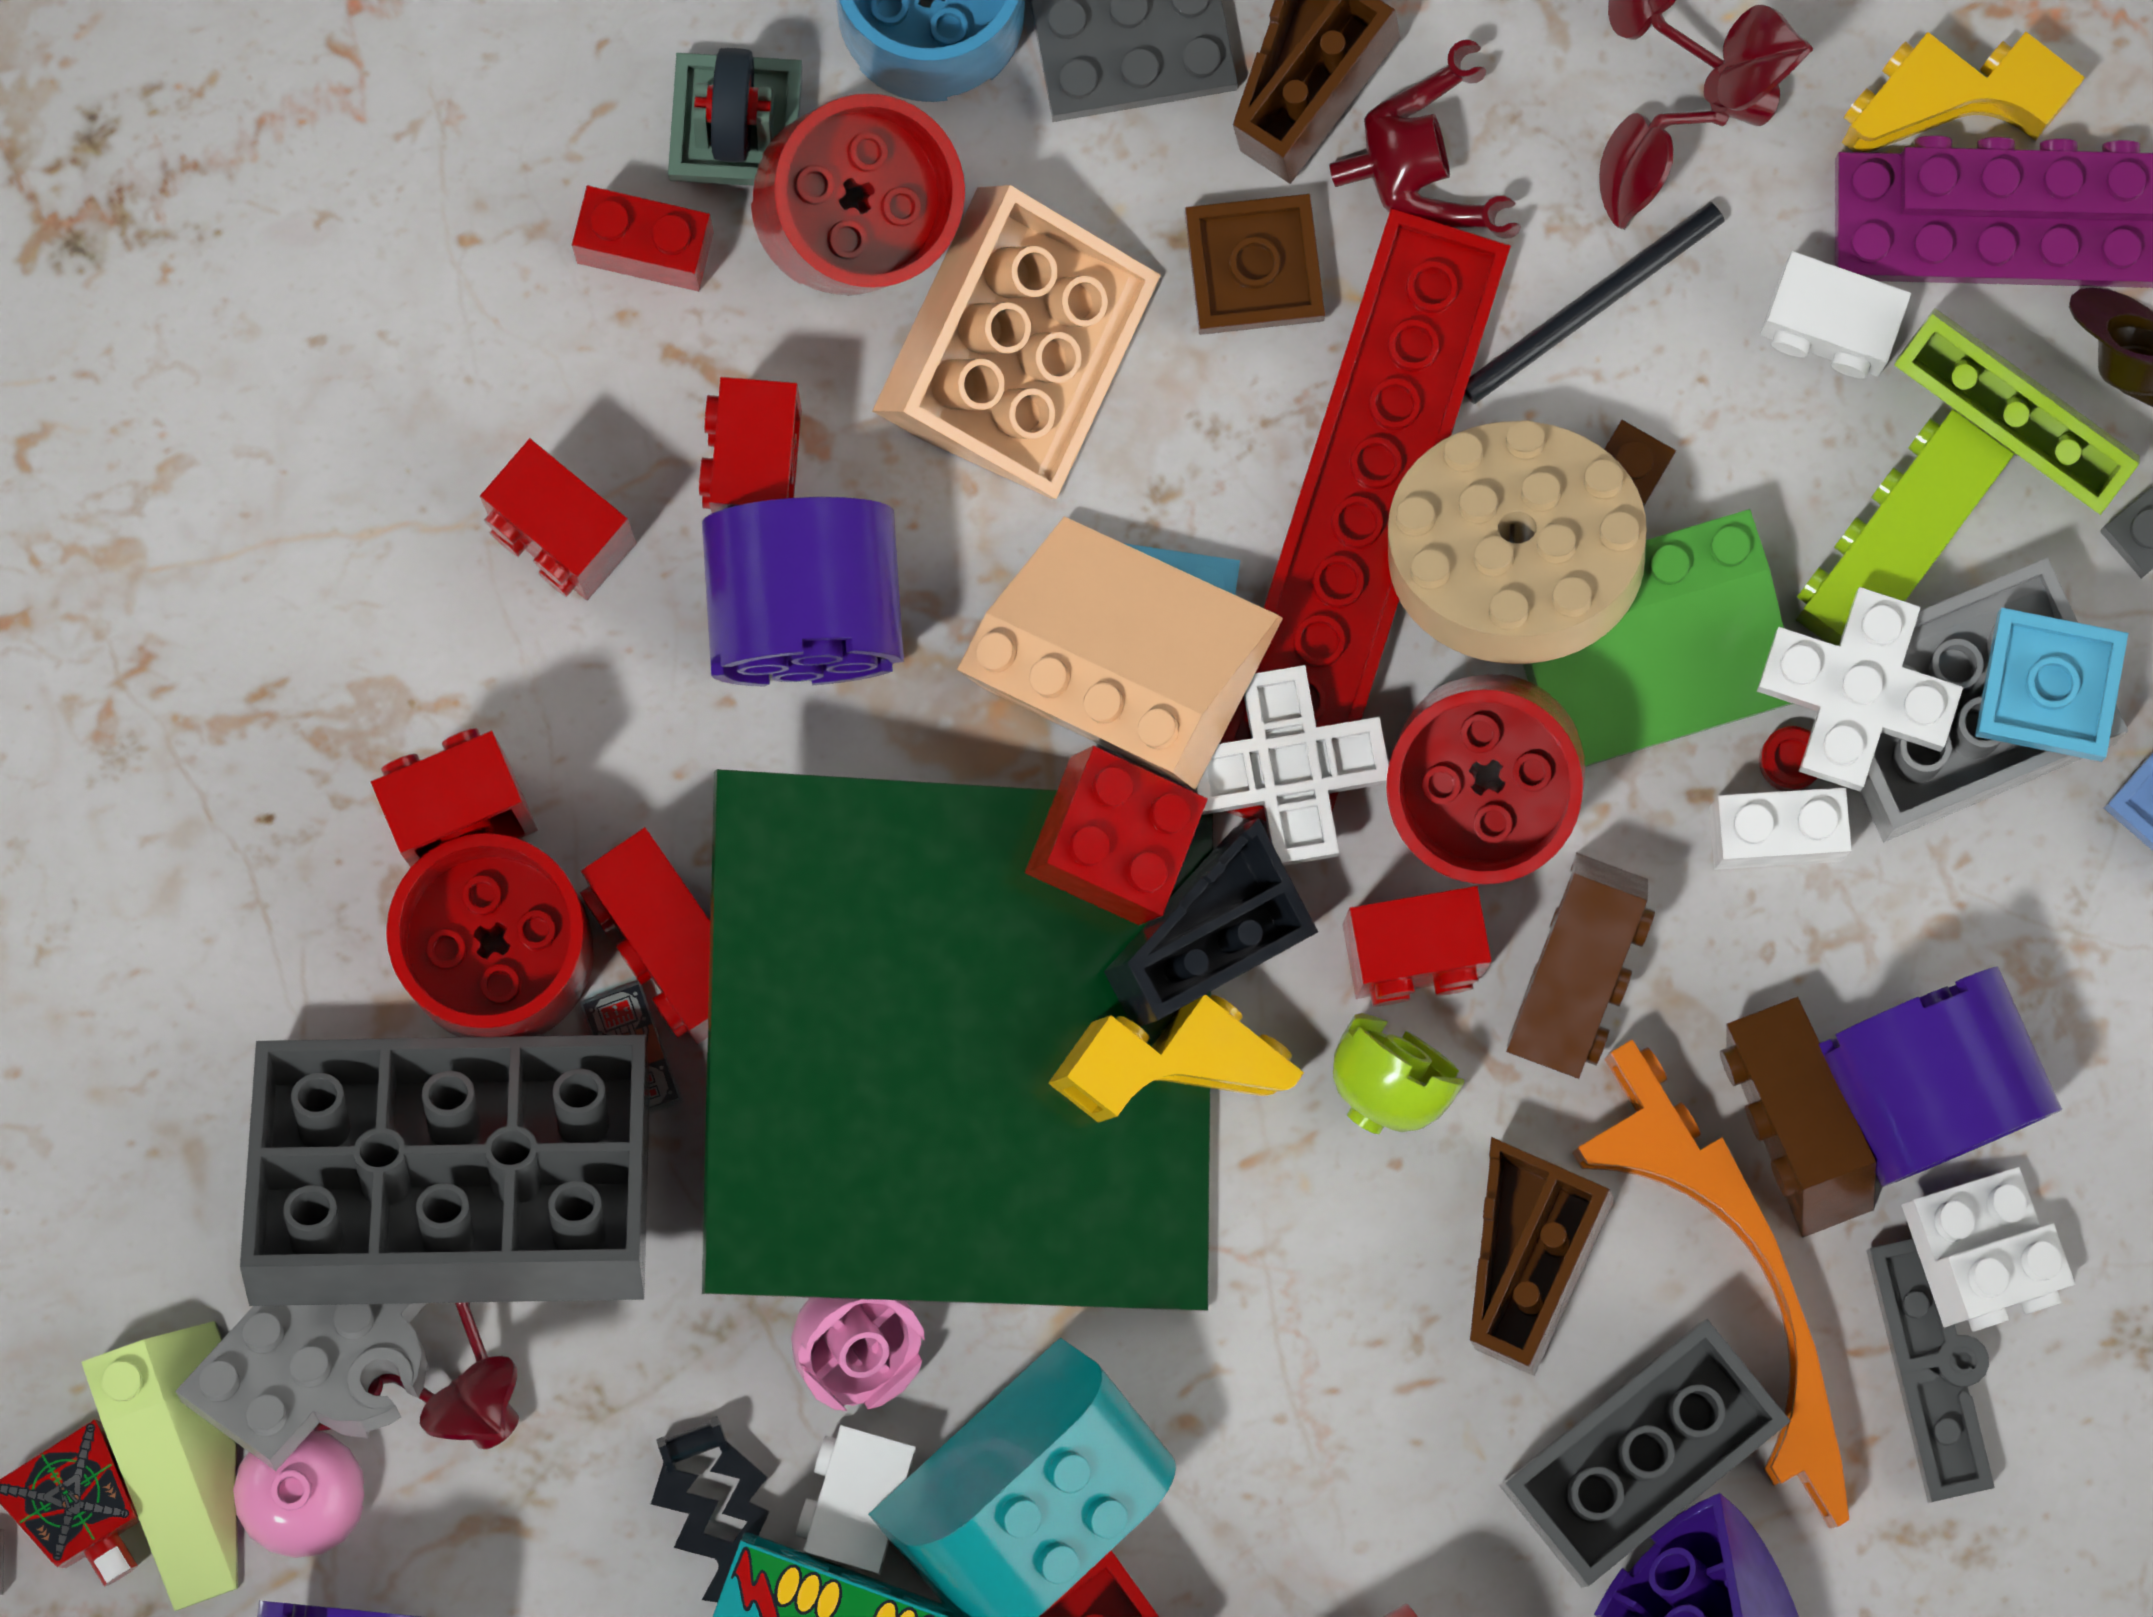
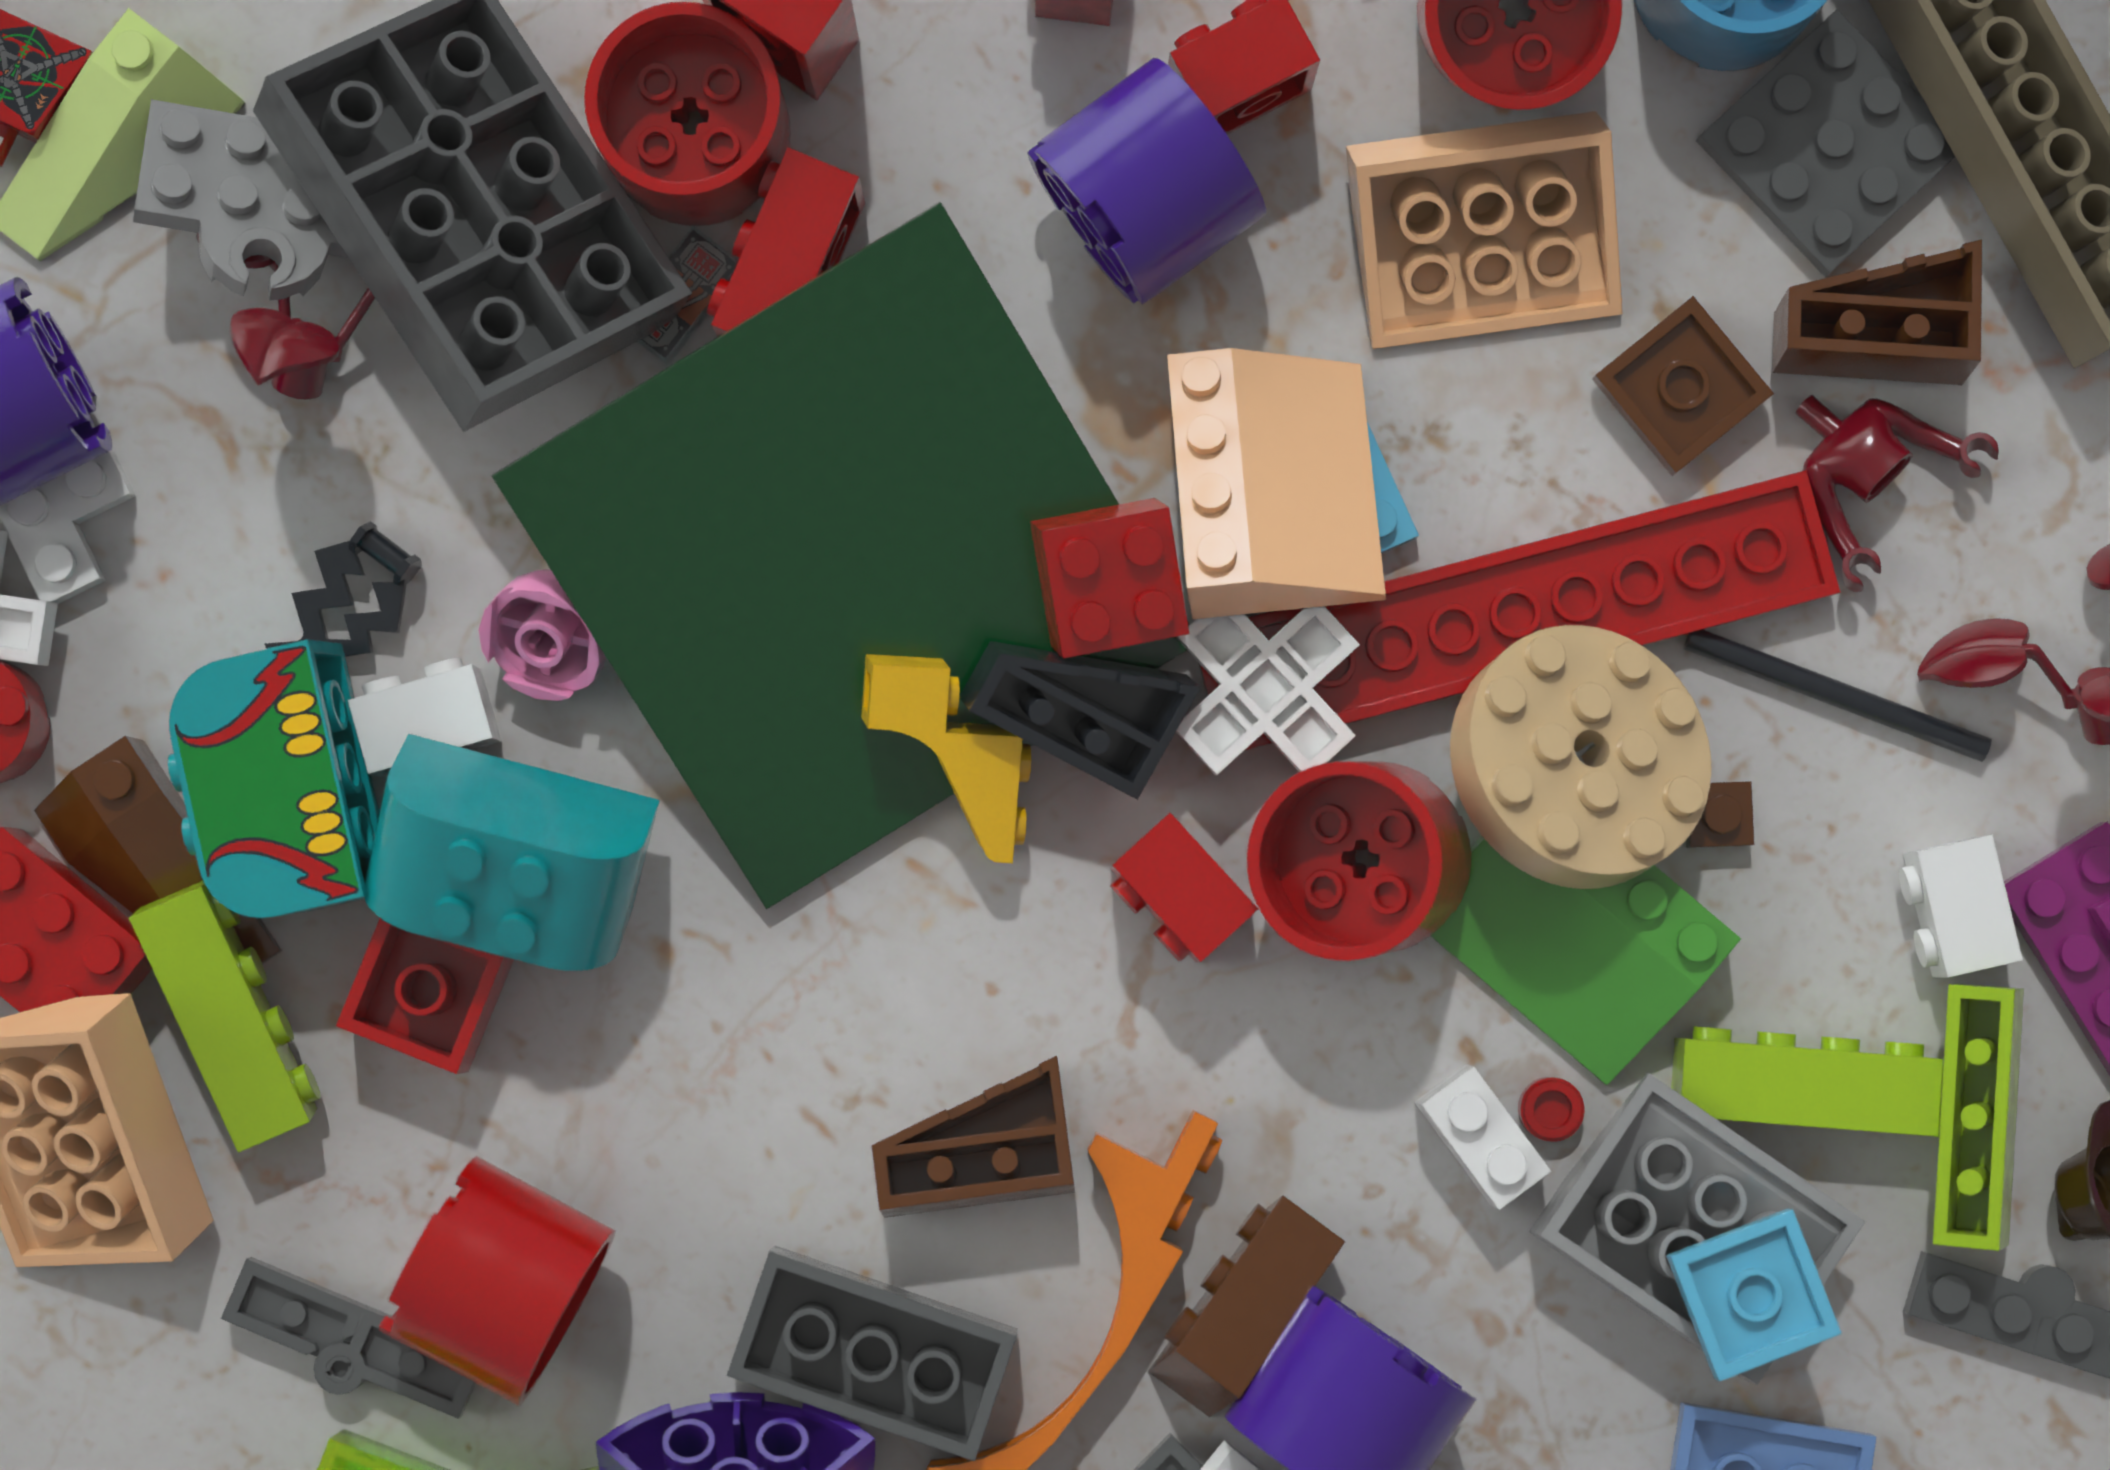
camera: 60 degrees right, 5 degrees up
(306, 1502) = (140, 267): bright pink cylinder -> none
(1391, 1077) = (1057, 941): lime cylinder -> none
(1581, 967) = (1255, 1041): reddish brown wedge -> none
(1859, 689) = (1643, 1131): white plate -> none

